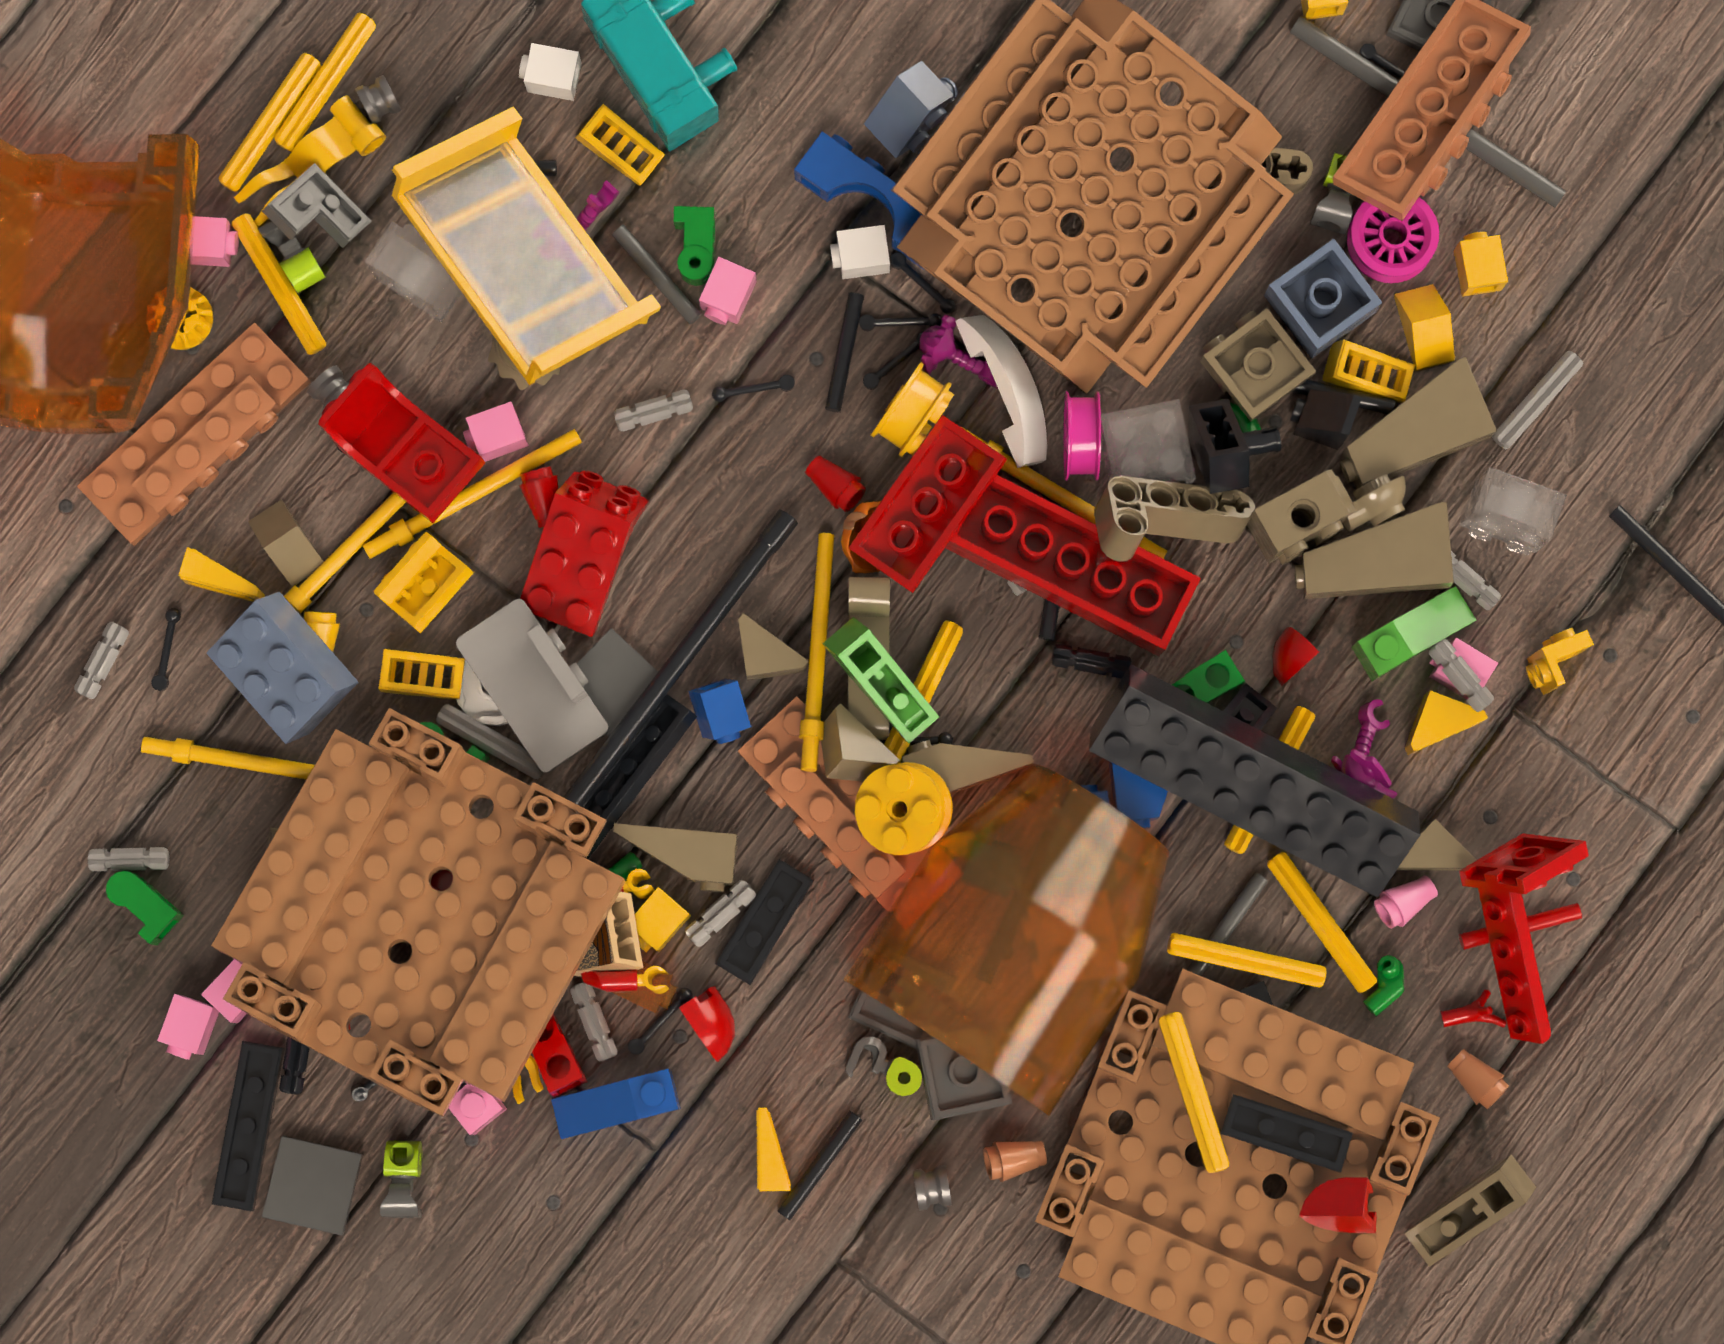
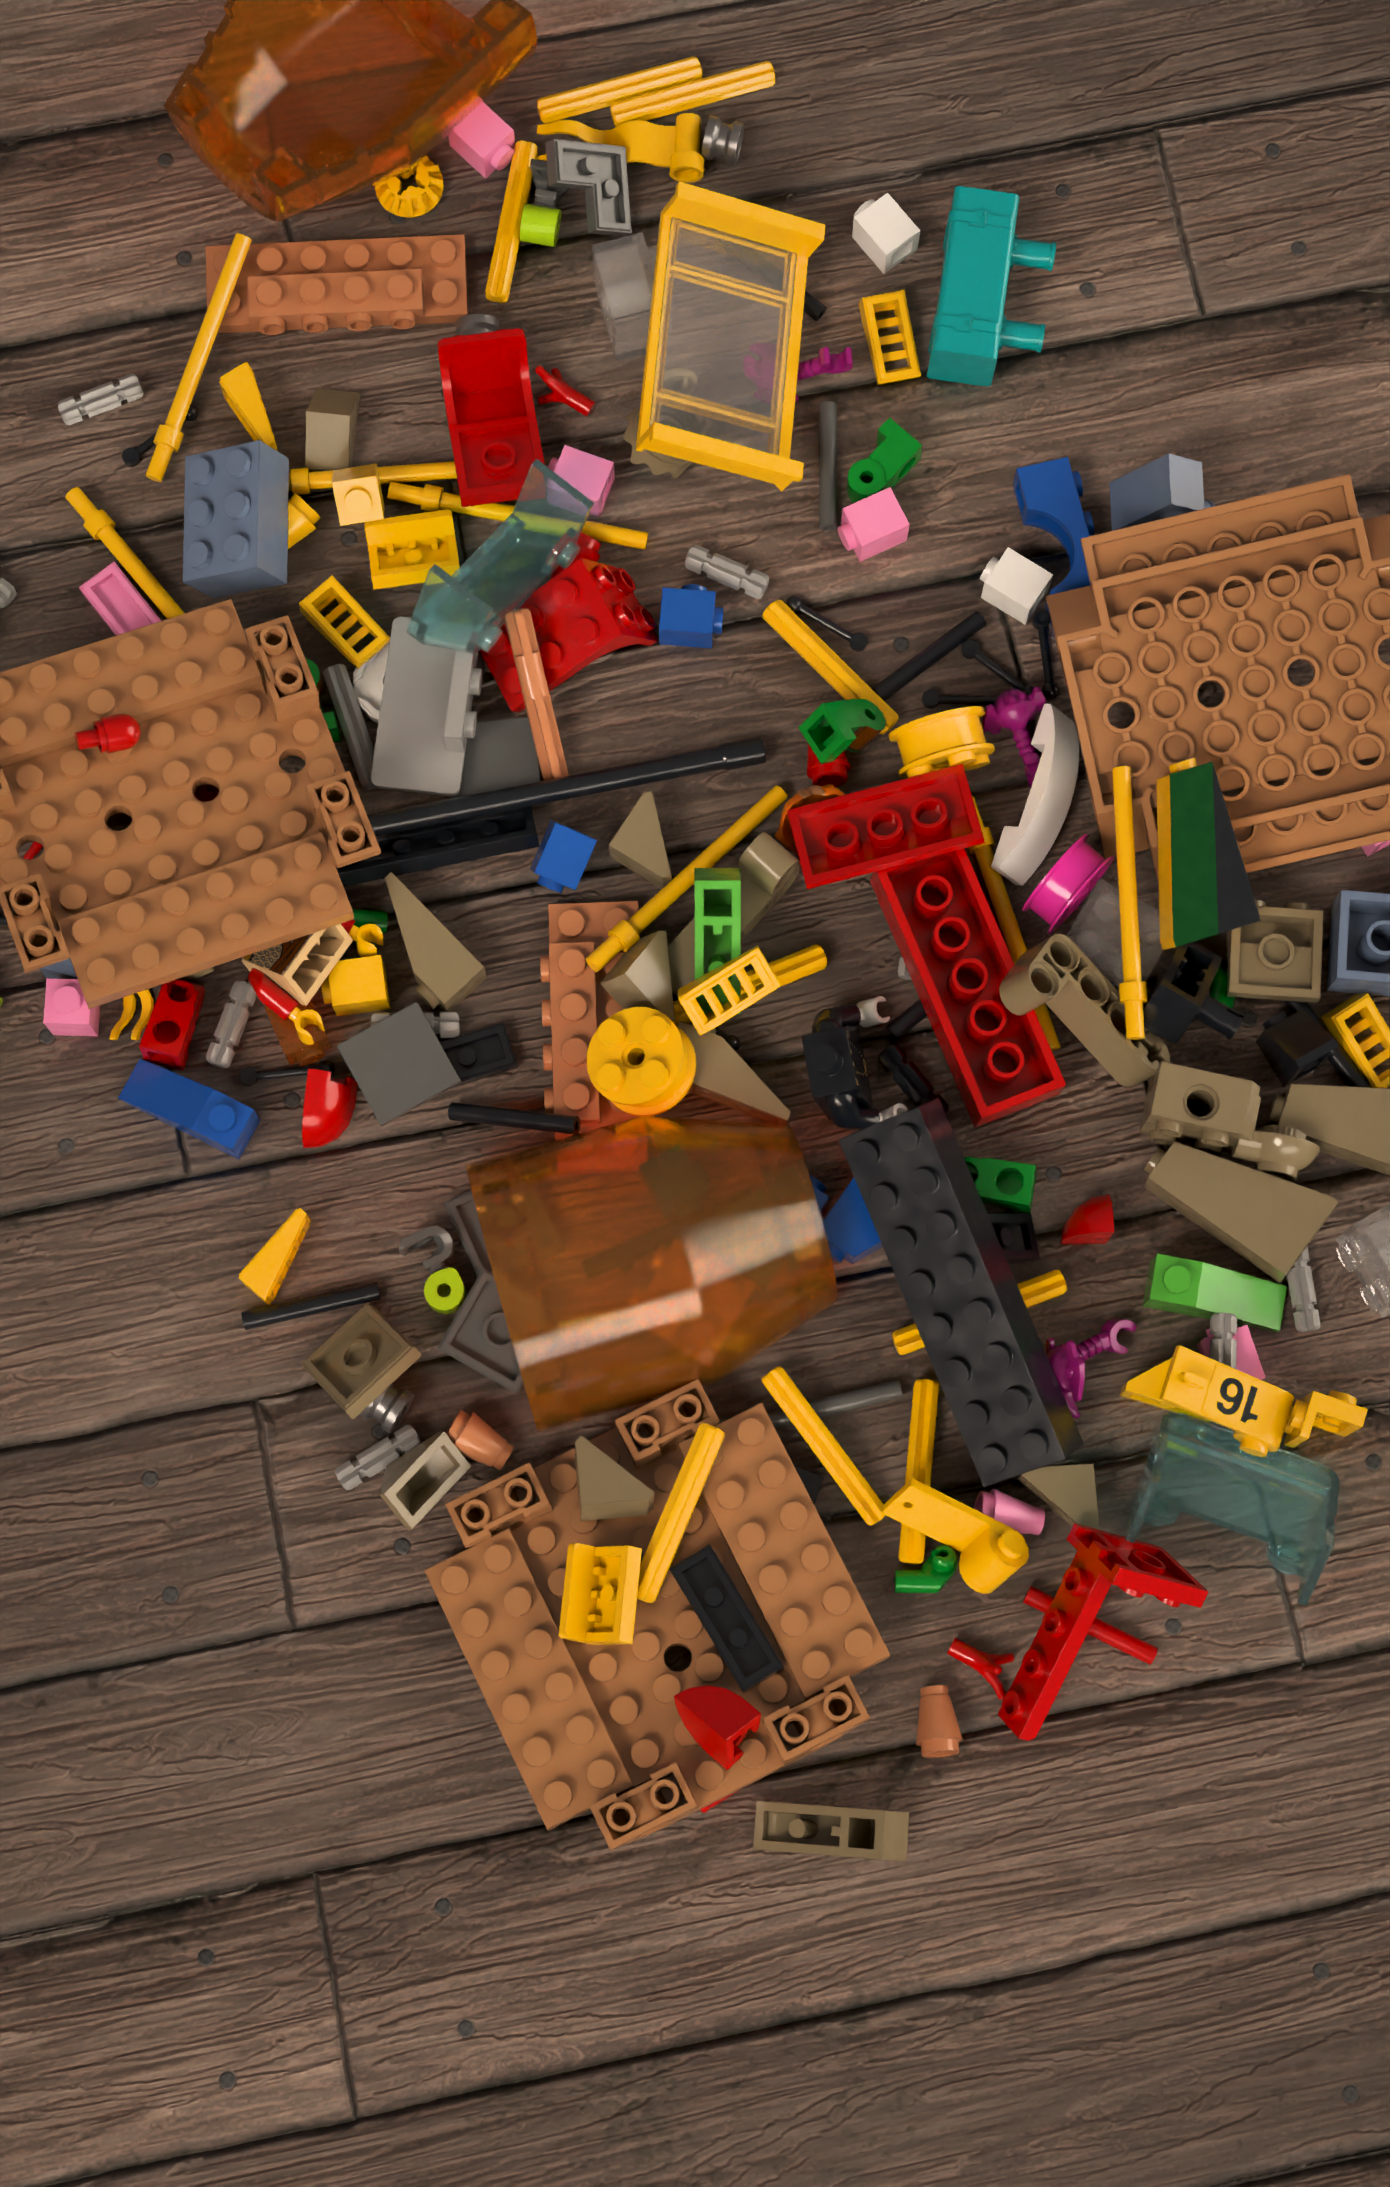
camera: 40 degrees right, 5 degrees down
(175, 646) = (169, 436): none -> yellow bar
(253, 795) = (118, 601): none -> bright pink tile
(343, 898) = (110, 734): none -> red cylinder
(351, 575) = (358, 494): none -> yellow brick
(426, 377) = (563, 392): none -> red bar
(506, 545) = (539, 535): none -> clear light blue windscreen
(604, 613) = (536, 694): none -> nougat axle
(657, 465) = (689, 617): none -> blue brick
(736, 950) = (399, 1064): none -> dark grey tile
(783, 417) = (824, 659): none -> yellow axle
(835, 457) = (842, 726): none -> green leg
(847, 919) = (514, 1118): none -> black piece
(890, 1173) = (361, 1360): none -> dark tan tile
(933, 713) = (721, 1013): none -> yellow slope
(956, 1227) = (377, 1457): none -> light grey axle
(1002, 1217) = (422, 1478): none -> dark tan slope
(1036, 695) = (839, 1067): none -> black torso
(1131, 1116) = (606, 1487): none -> dark tan slope
(1162, 349) = (1198, 859): none -> slope
(1191, 475) = (1132, 990): none -> yellow bar
(1191, 1190) = (600, 1594): none -> yellow bracket
(1413, 936) = (986, 1547): none -> yellow door
(1488, 700) = (1230, 1399): none -> yellow door
(1544, 746) = (1269, 1498): none -> clear light blue windscreen

